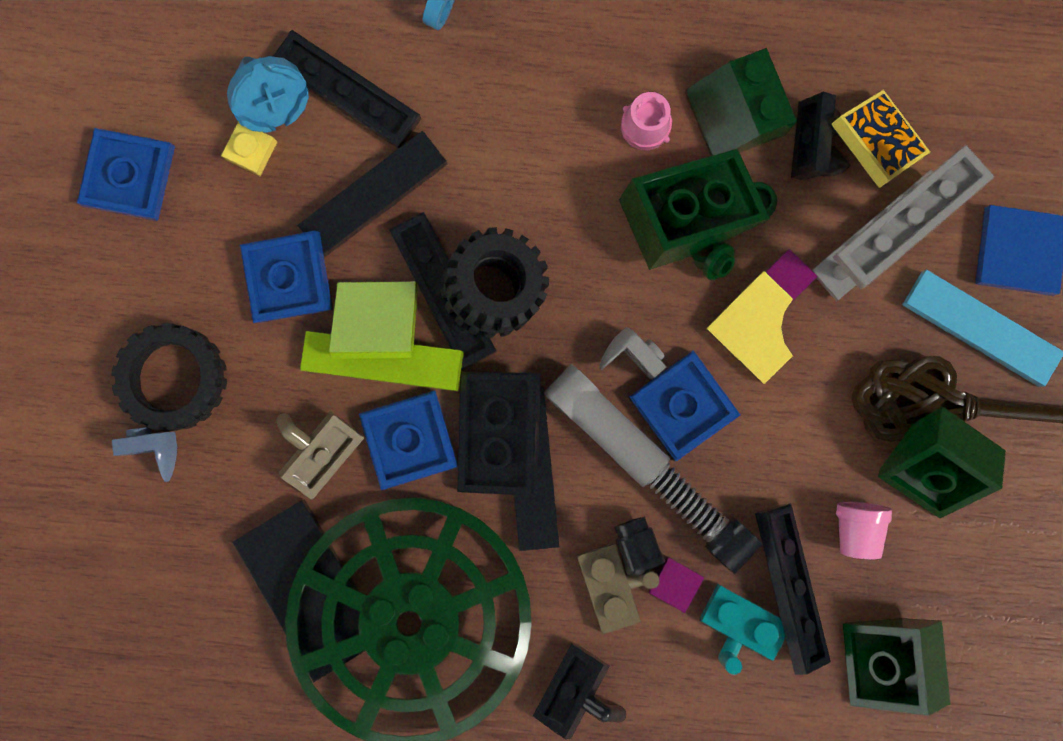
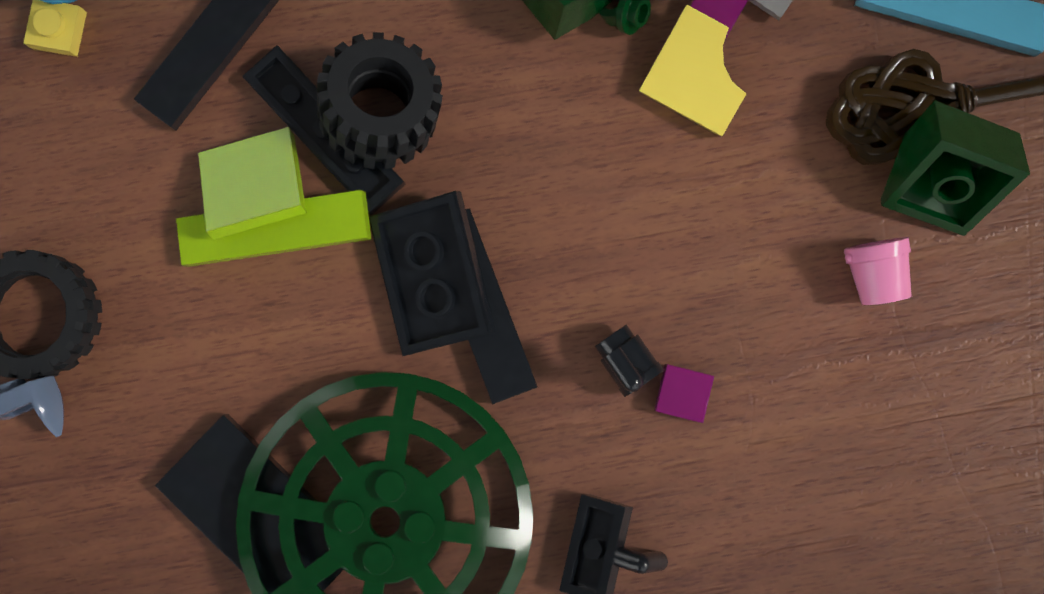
camera: 15 degrees left, 0 degrees up
(286, 277) = (136, 162): blue tile -> none
(317, 454) = (227, 355): dark tan plate -> none
(408, 440) = (329, 312): blue tile -> none
(612, 588) = (611, 418): dark tan plate -> none
(643, 354) = (574, 139): light grey plate -> none
(648, 464) = (520, 214): piece -> none
(684, 406) = (637, 186): blue tile -> none
(744, 625) = (774, 418): teal plate -> none
(793, 589) = (820, 361): black tile -> none
(897, 665) = (963, 415): dark green slope -> none

